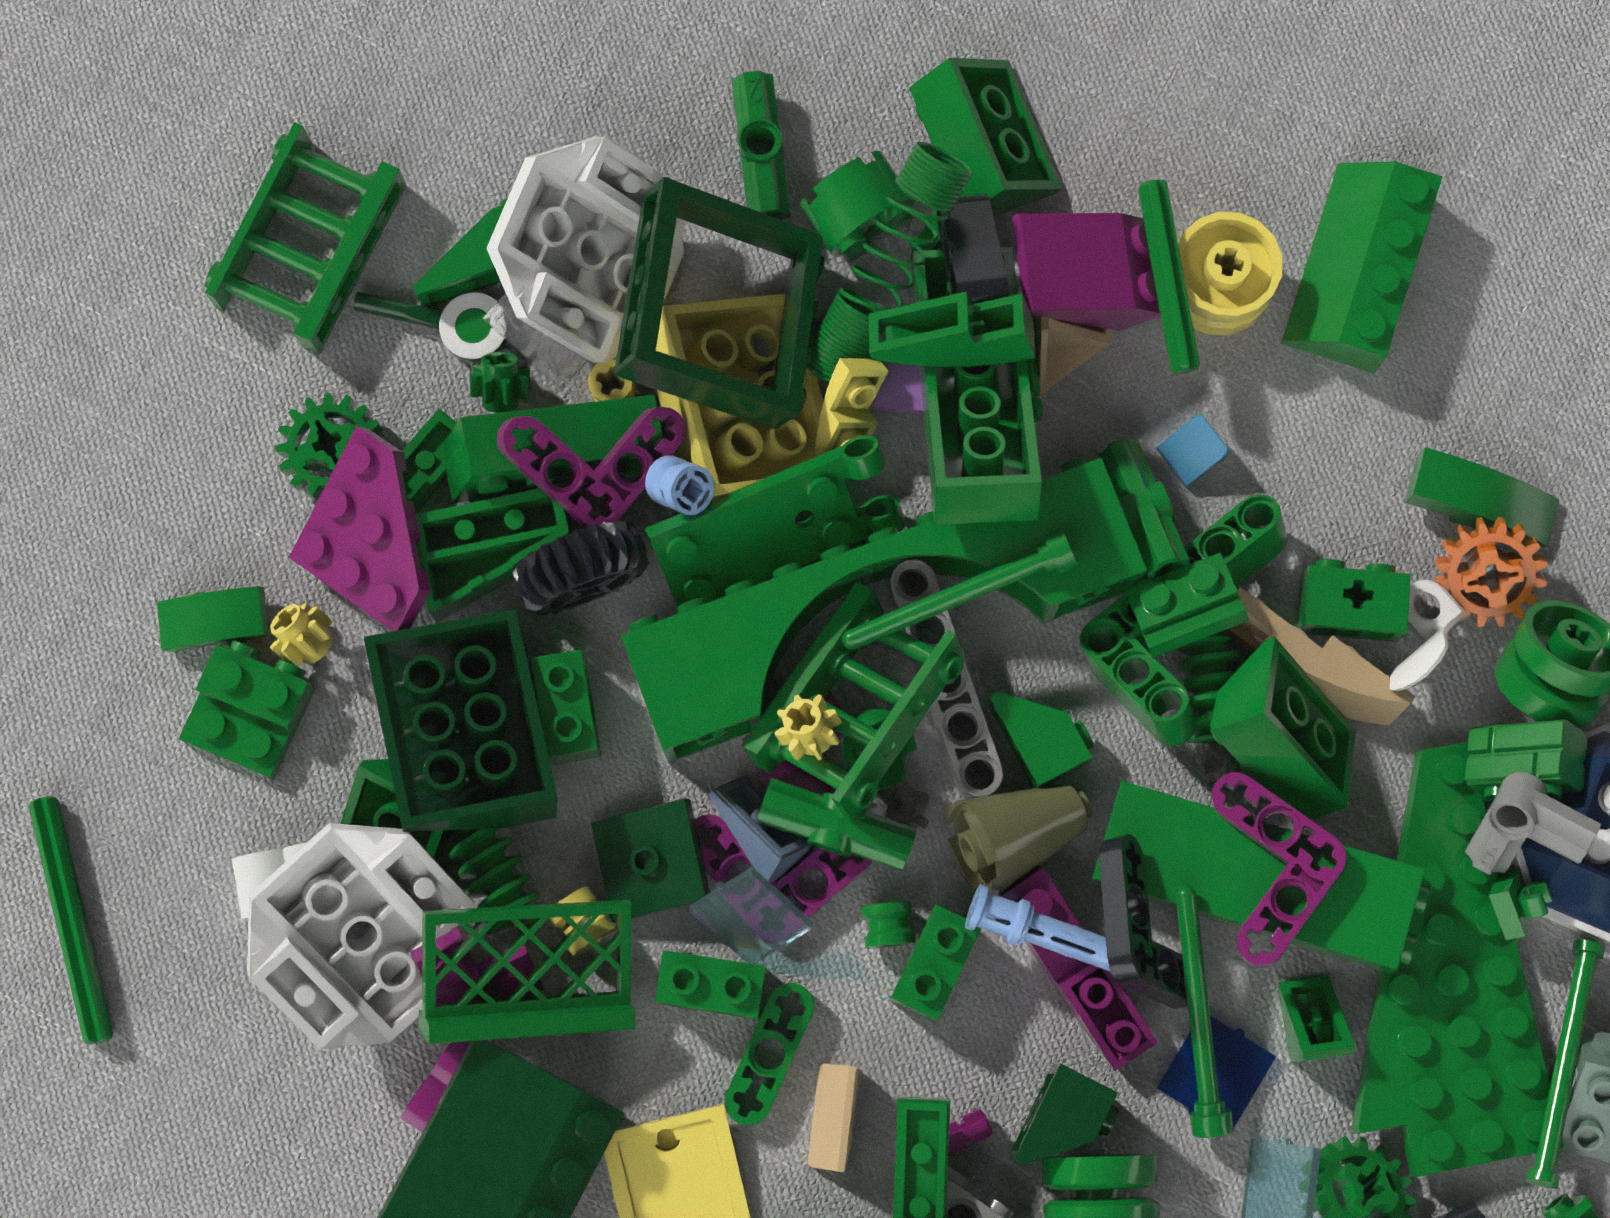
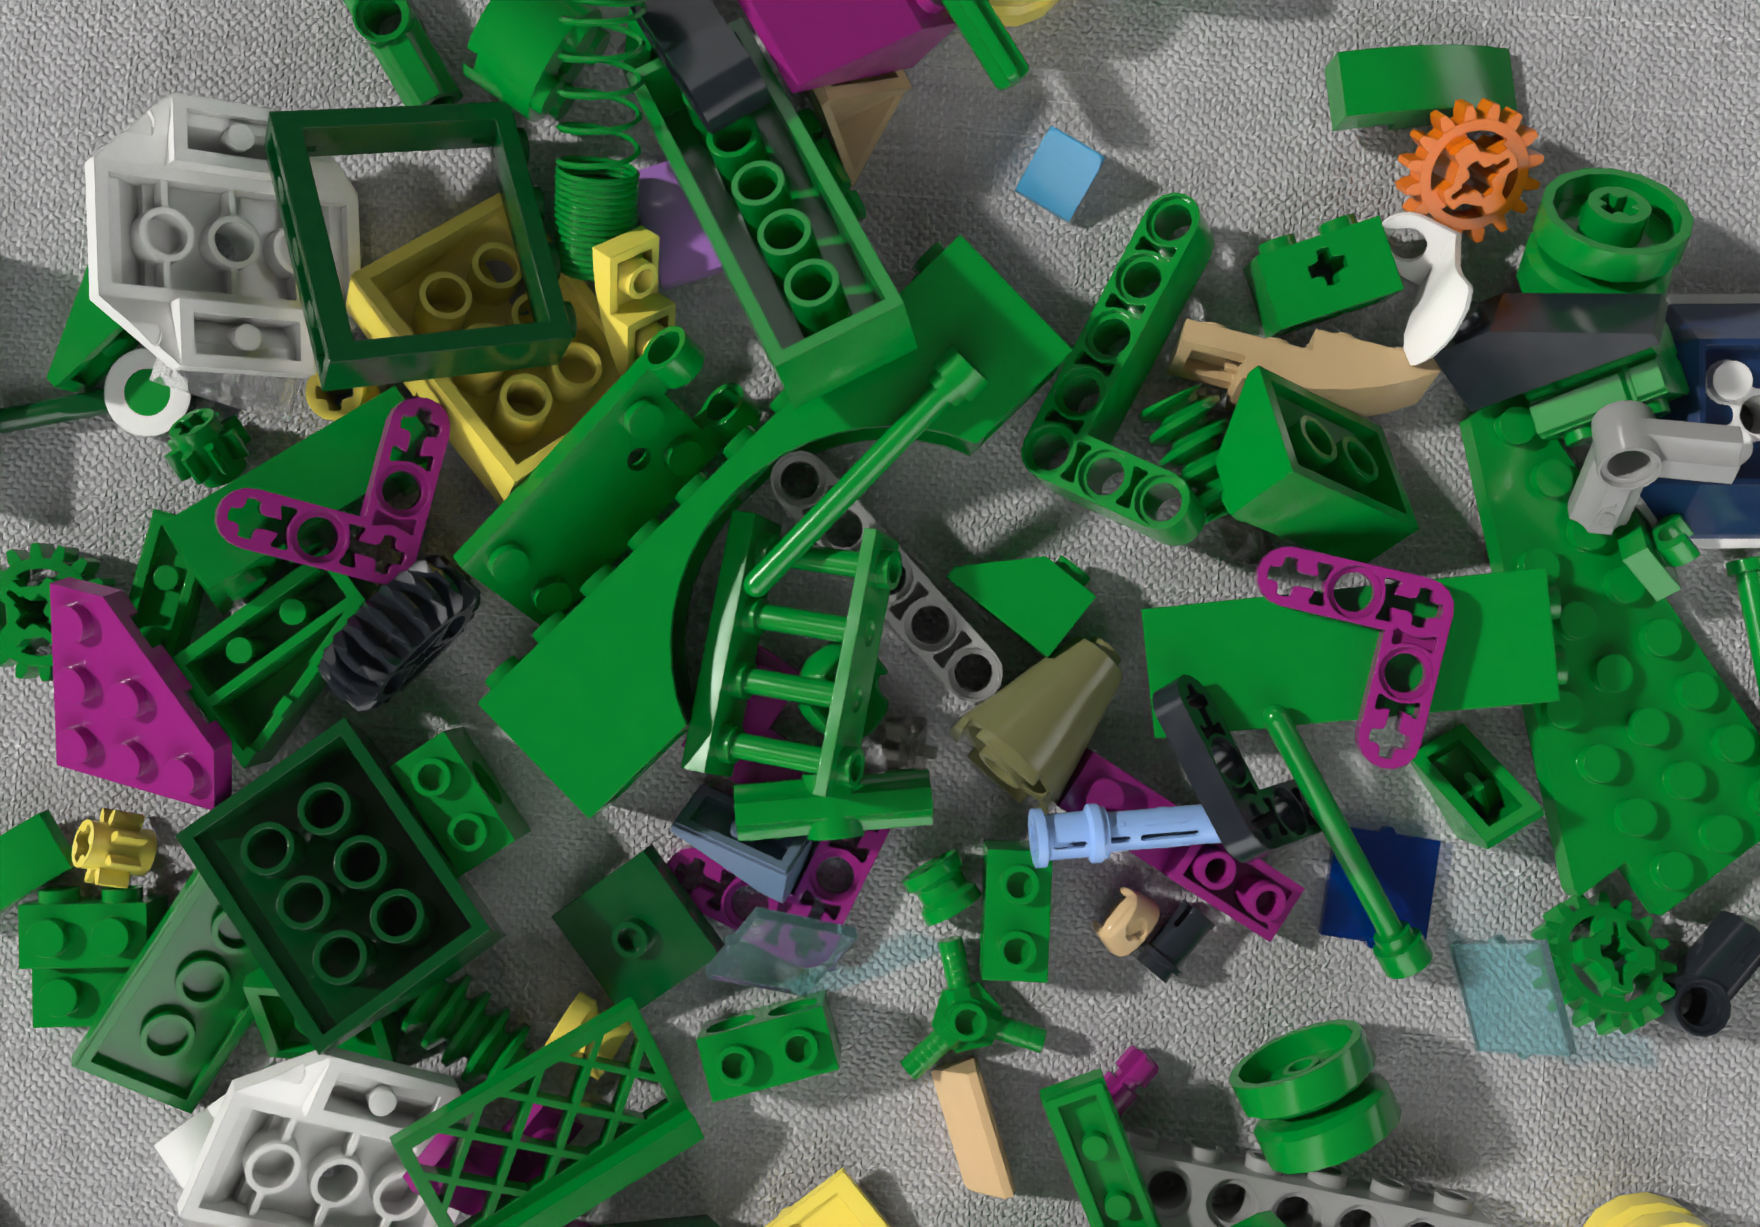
camera: 20 degrees left, 10 degrees up
(302, 761) = (176, 1005): none -> green tile
(679, 485) = (454, 481): light blue wheel -> none
(796, 1023) = (885, 1131): green beam -> none
(808, 727) = (730, 716): light yellow gear -> none
(865, 1030) = (966, 1017): none -> green piece
(953, 332) = (714, 156): green slope -> none
(1014, 1012) = (1127, 922): none -> tan piece
(1044, 1043) = (1175, 941): none -> black pin
(1064, 1116) = (1237, 1030): dark green slope -> none
(1145, 508) = (1037, 273): green piece -> none
(1186, 605) = (1136, 370): green plate -> none
(1485, 706) = (1540, 338): none -> black slope

